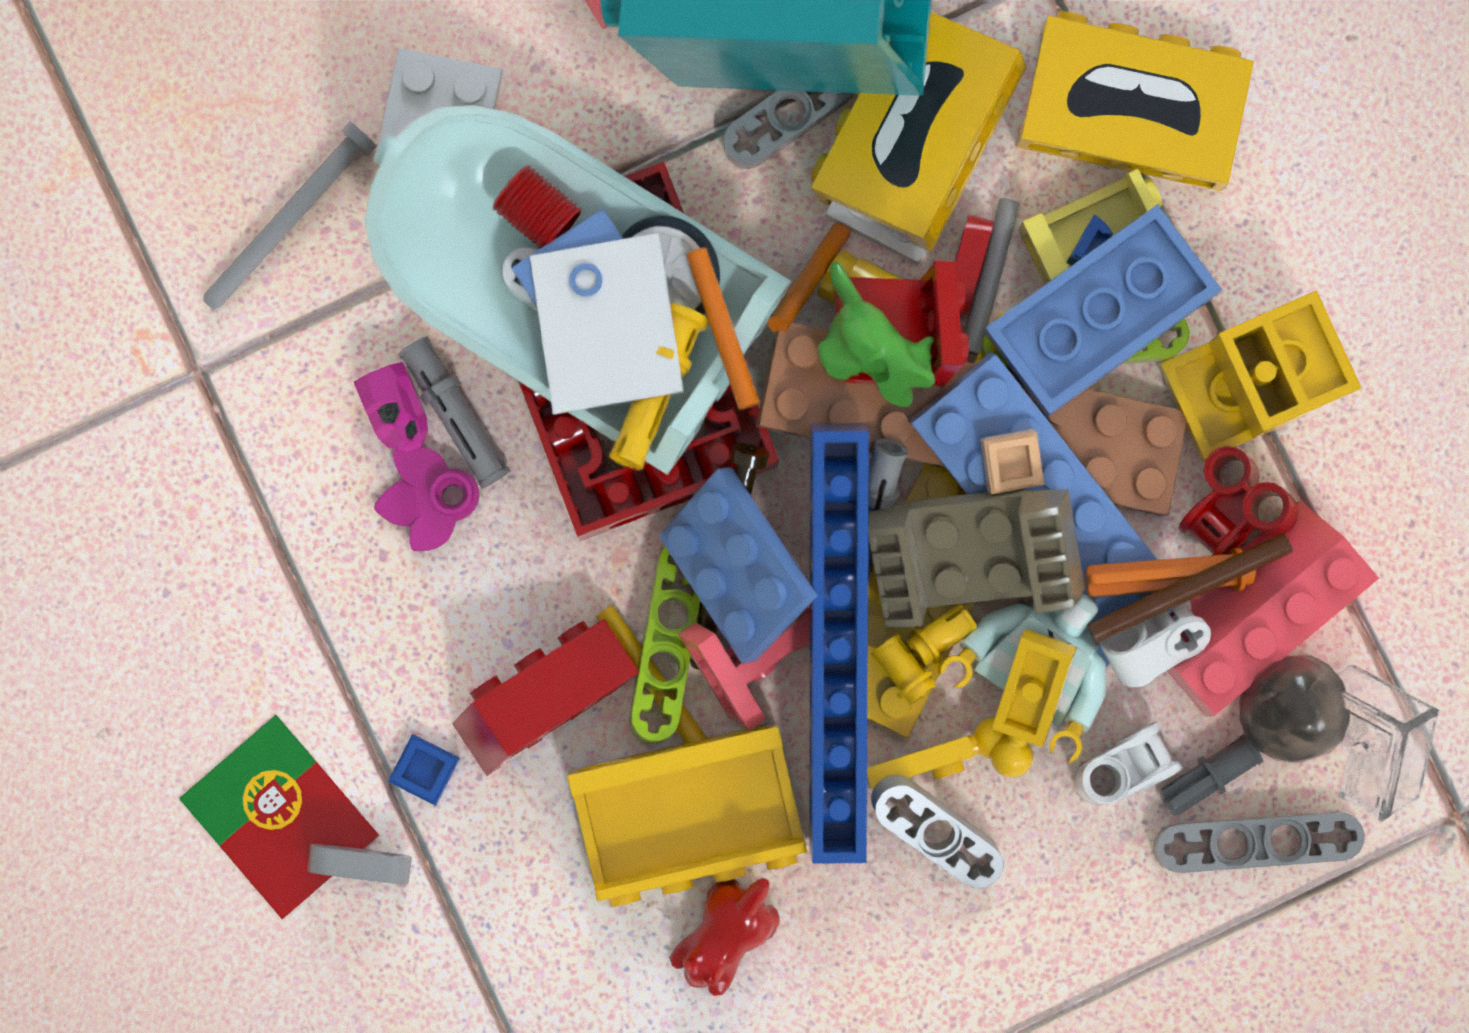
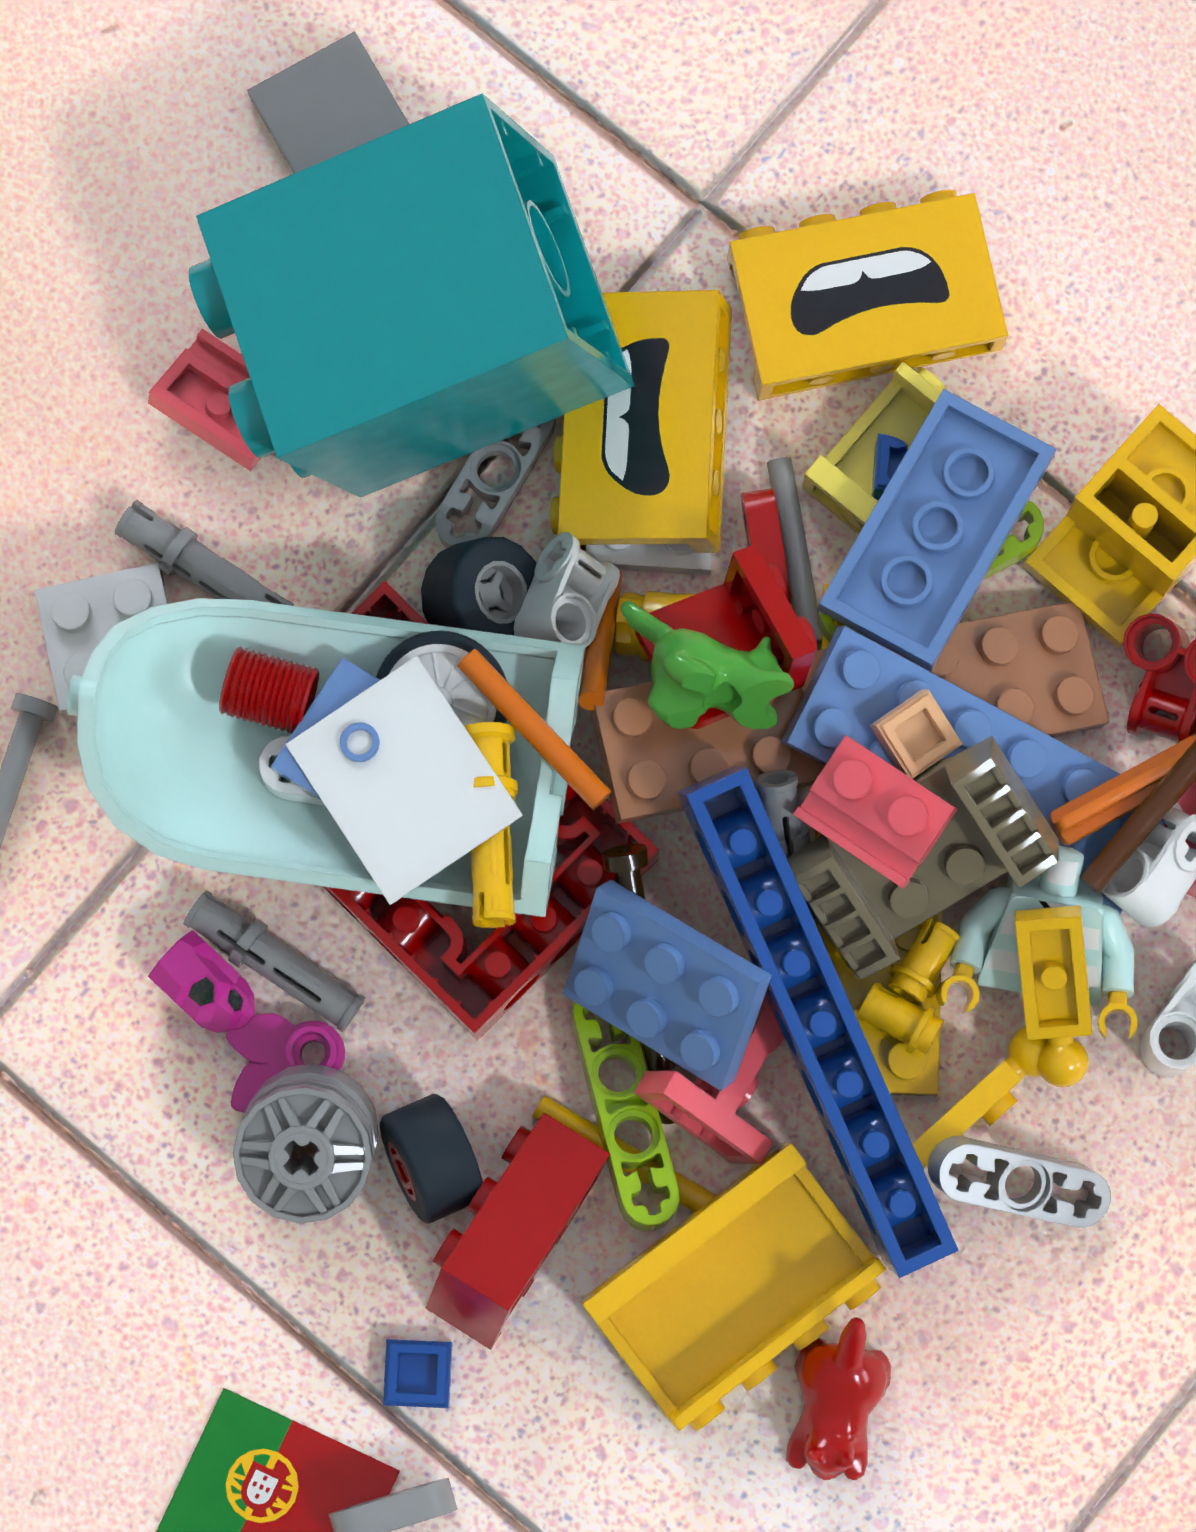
camera: 20 degrees left, 5 degrees down
(421, 534) = (304, 1107): none -> light grey wheel
(504, 614) = (431, 1157): none -> black wheel
(528, 79) = (184, 555): none -> light grey pin
(737, 202) = (477, 585): none -> black wheel
(800, 233) = (566, 594): none -> white piece
(953, 506) = (875, 811): none -> coral plate

